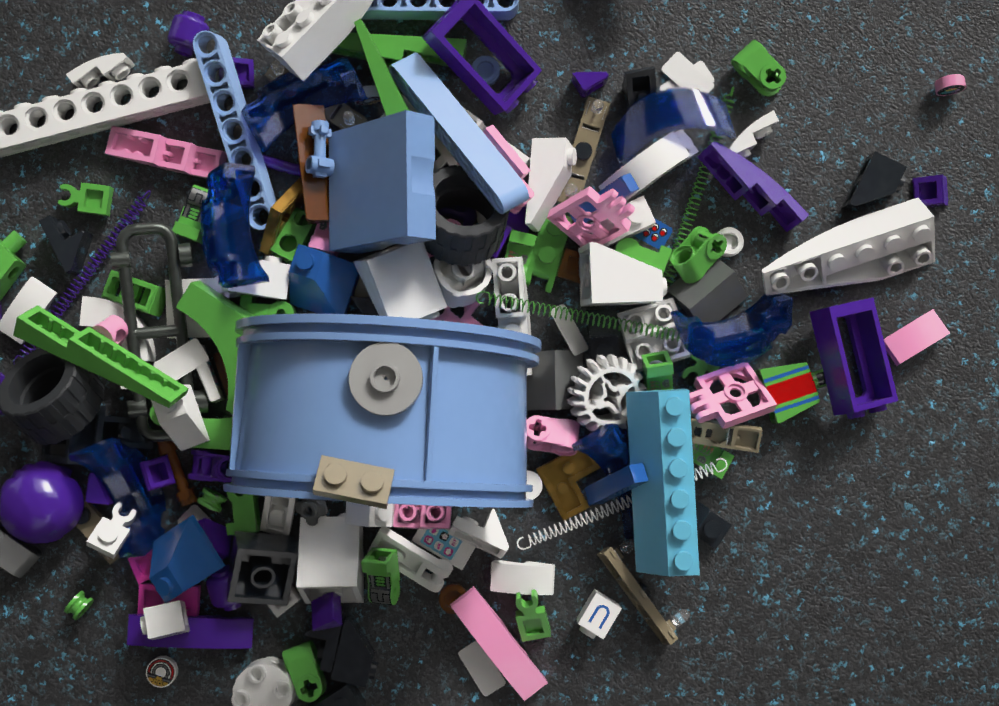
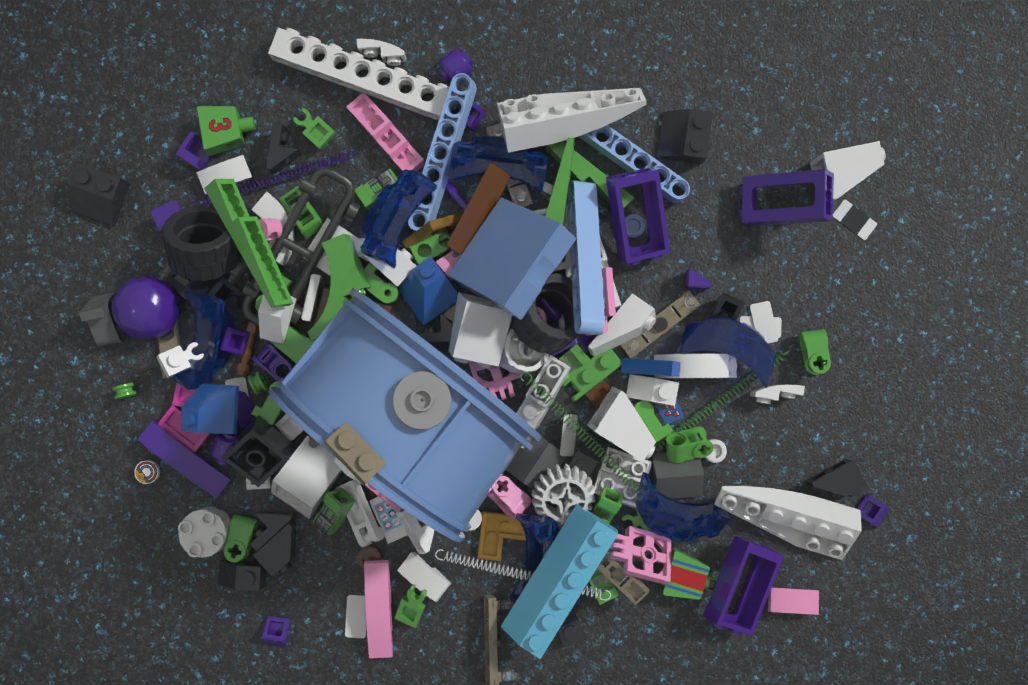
camera: 30 degrees right, 0 degrees up
(97, 491) = (187, 325): dark purple slope -> none
(165, 620) = (172, 441): white brick -> none
(183, 360) = (302, 279): white sticker -> none
(319, 164) = (479, 214): medium blue bar -> none
(326, 611) = (281, 509): dark purple slope -> none
(598, 615) = (456, 636): white brick -> none
(607, 207) = (649, 373): bright pink piece -> none
(616, 484) = (528, 559): blue piece -> none
(760, 190) = (759, 434): dark purple slope -> none
(950, 84) = (934, 450): bright pink tile -> none

